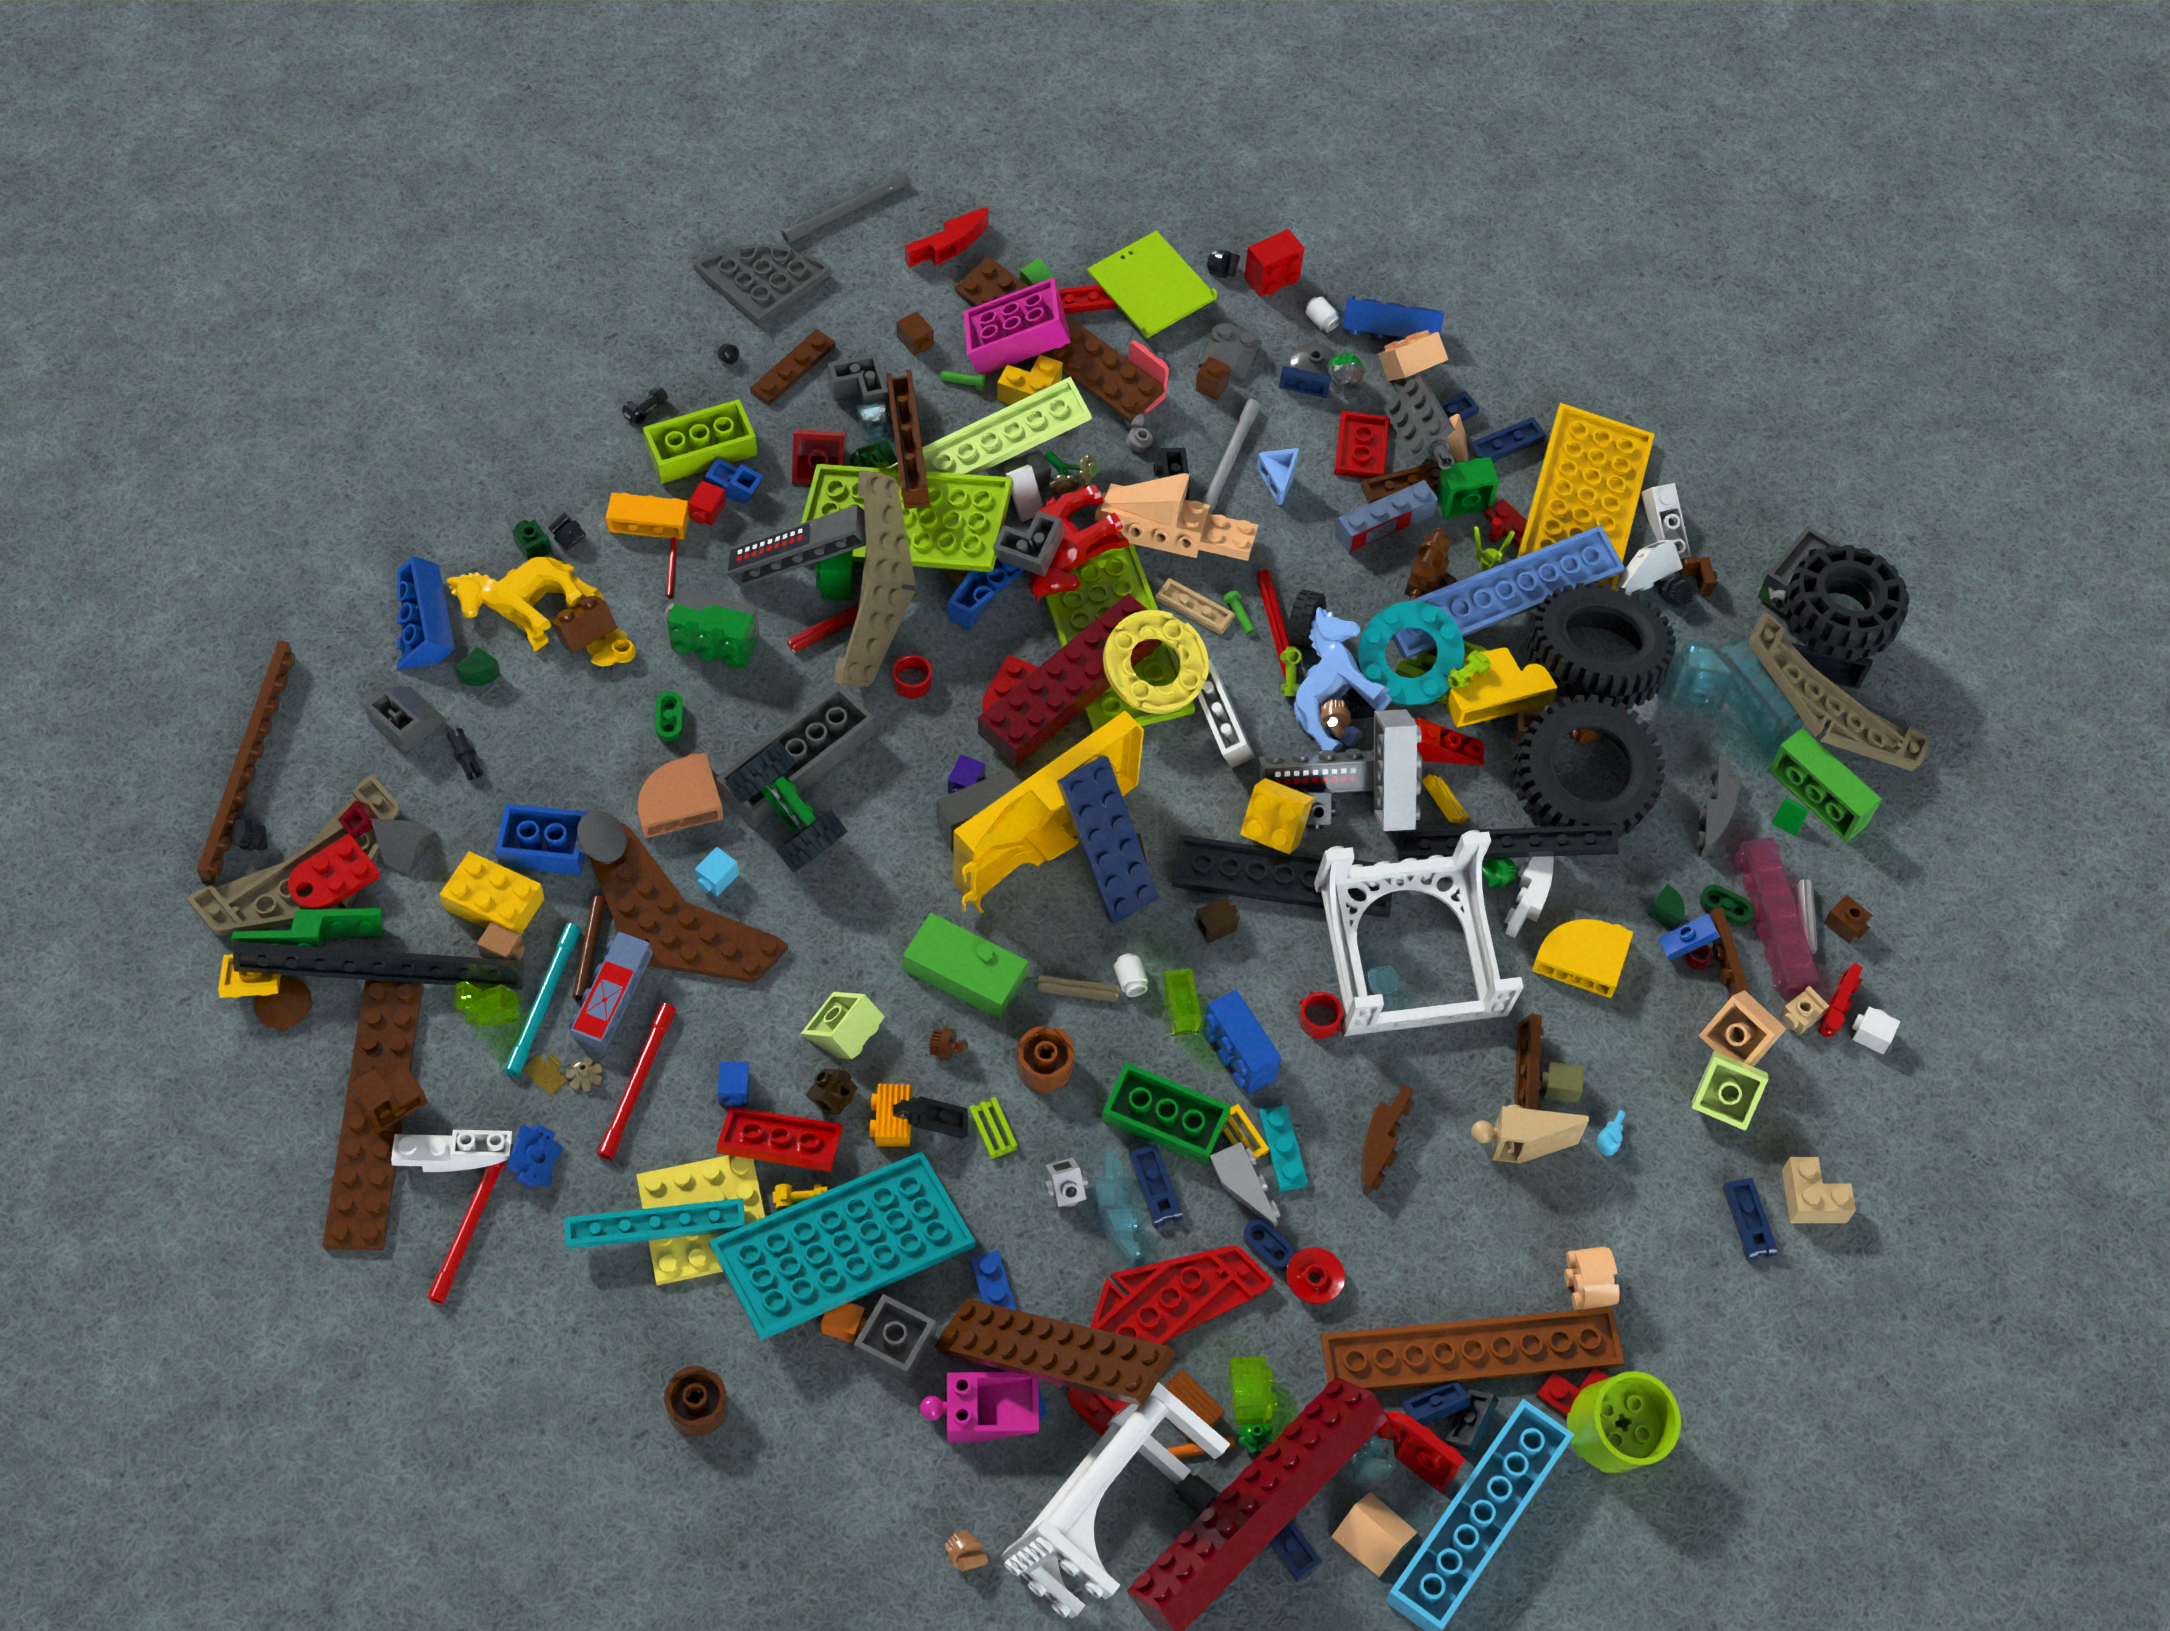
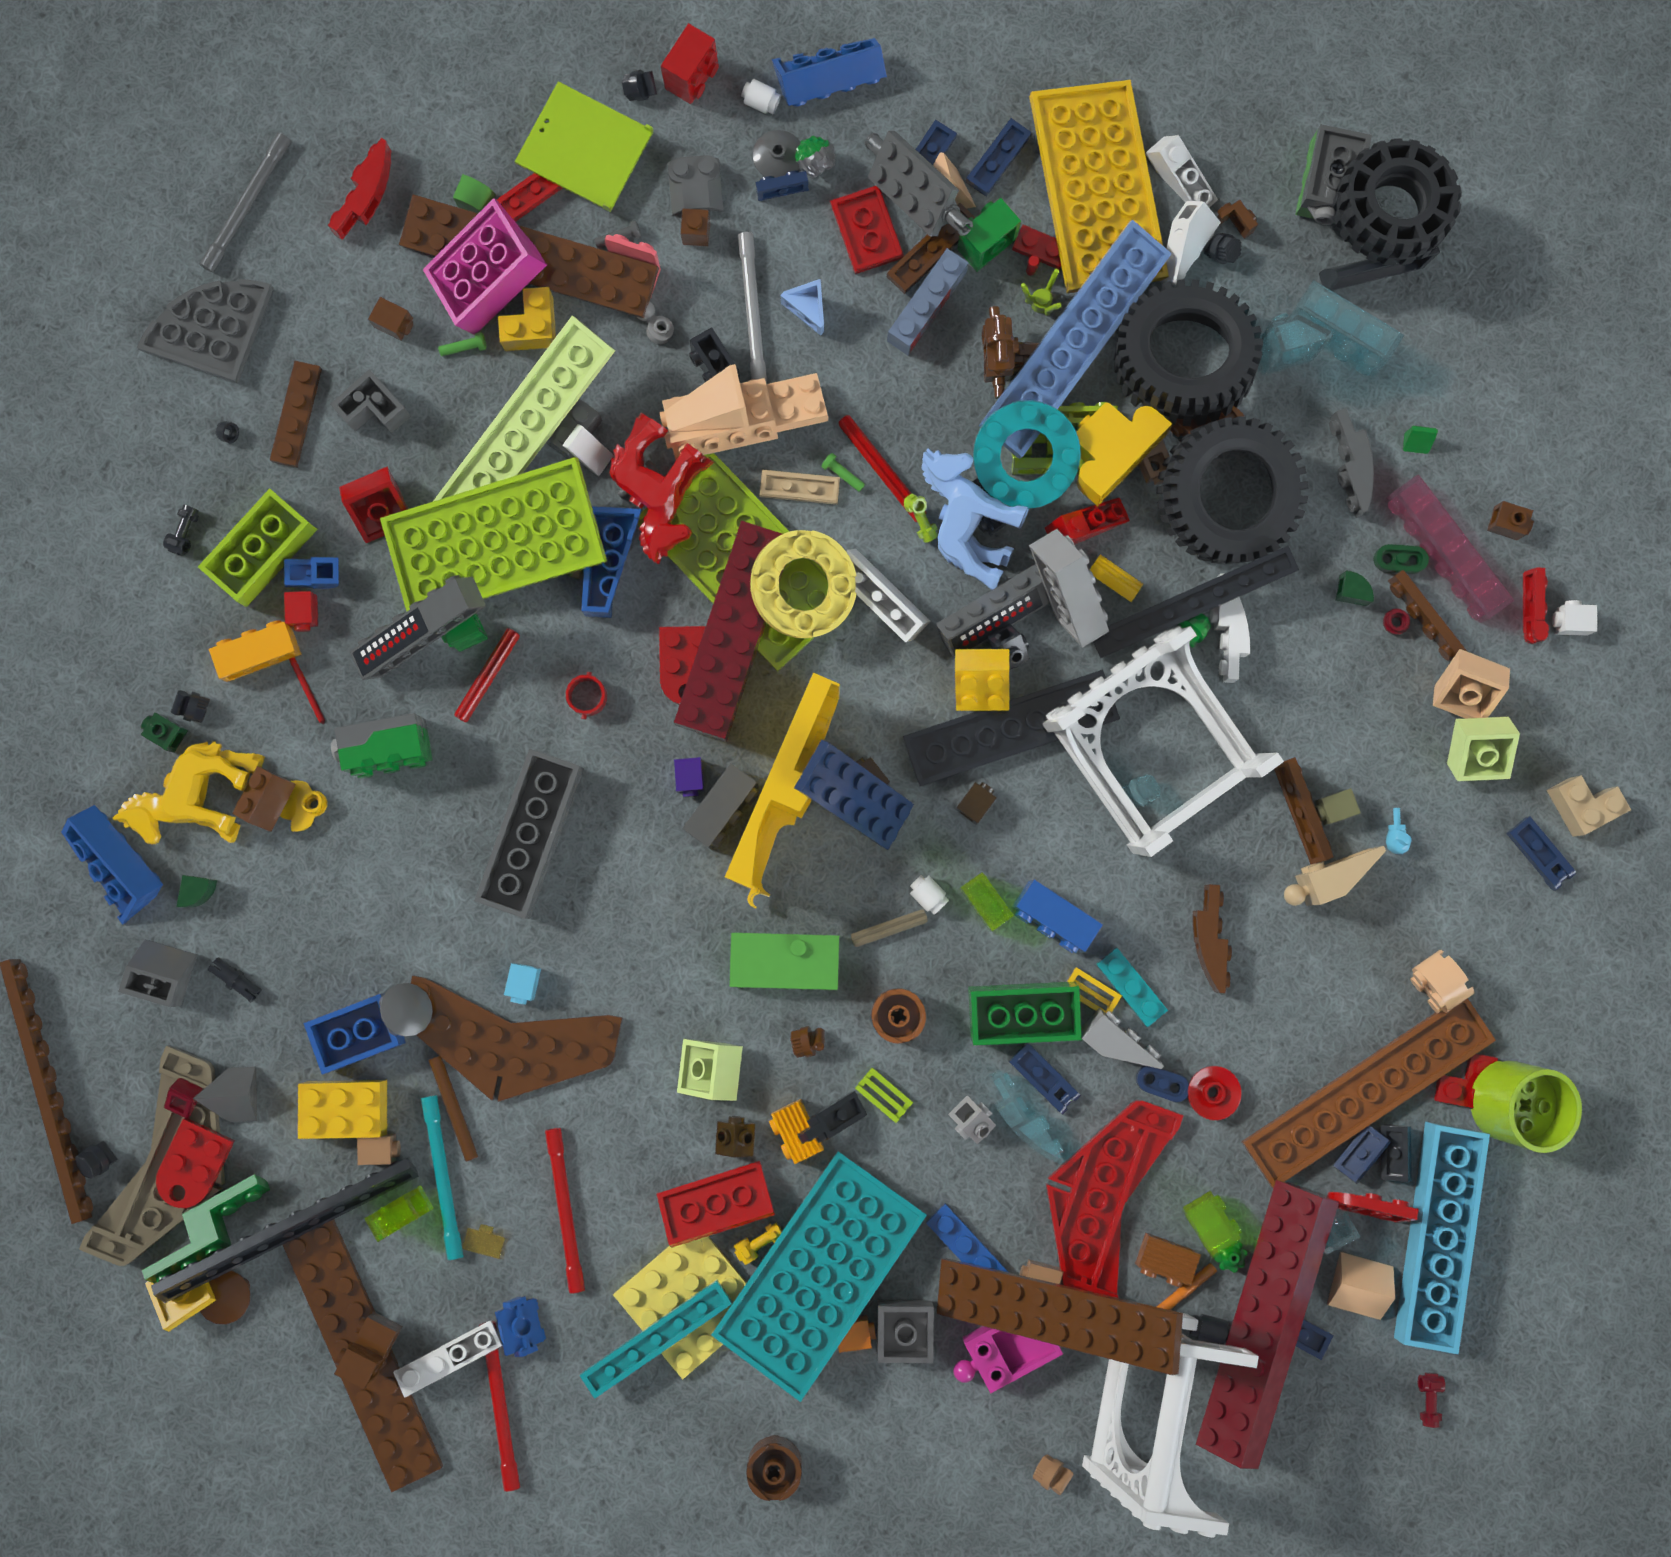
camera: 25 degrees left, 25 degrees up
(584, 1074) = (520, 1222): dark tan plant -> none
(611, 991) = (497, 1145): sand blue brick -> none
(669, 718) = (393, 849): green plate -> none
(679, 796) = (447, 925): nougat brick -> none
(733, 1083) = (648, 1173): blue brick -> none
(813, 834) = (520, 889): black plate -> none
(873, 421) = (405, 441): clear light blue brick -> none
(874, 455) = (429, 487): dark green plate -> none
(885, 570) = (516, 626): dark tan wing -> none
(908, 441) = (453, 456): reddish brown tile -> none
(1033, 549) = (637, 522): dark grey brick -> none
(1065, 481) = (635, 401): olive plant -> none
(1301, 617) = (909, 456): black tyre -> none
(1328, 1000) = (1124, 847): red piece -> none
(1335, 717) = (984, 550): medium nougat piece -> none
(1412, 355) = (872, 109): light nougat brick -> none
(1475, 662) = (1093, 438): lime bar -> none
(1585, 955) = (1304, 672): yellow brick -> none
(1689, 937) = (1385, 611): blue plate -> none
(1804, 1011) = (1498, 636): tan brick -> none
(1807, 912) = (1471, 529): light grey axle -> none
(1824, 785) = (1441, 396): bright green brick -> none
(1825, 704) = (1418, 322): dark tan wing -> none

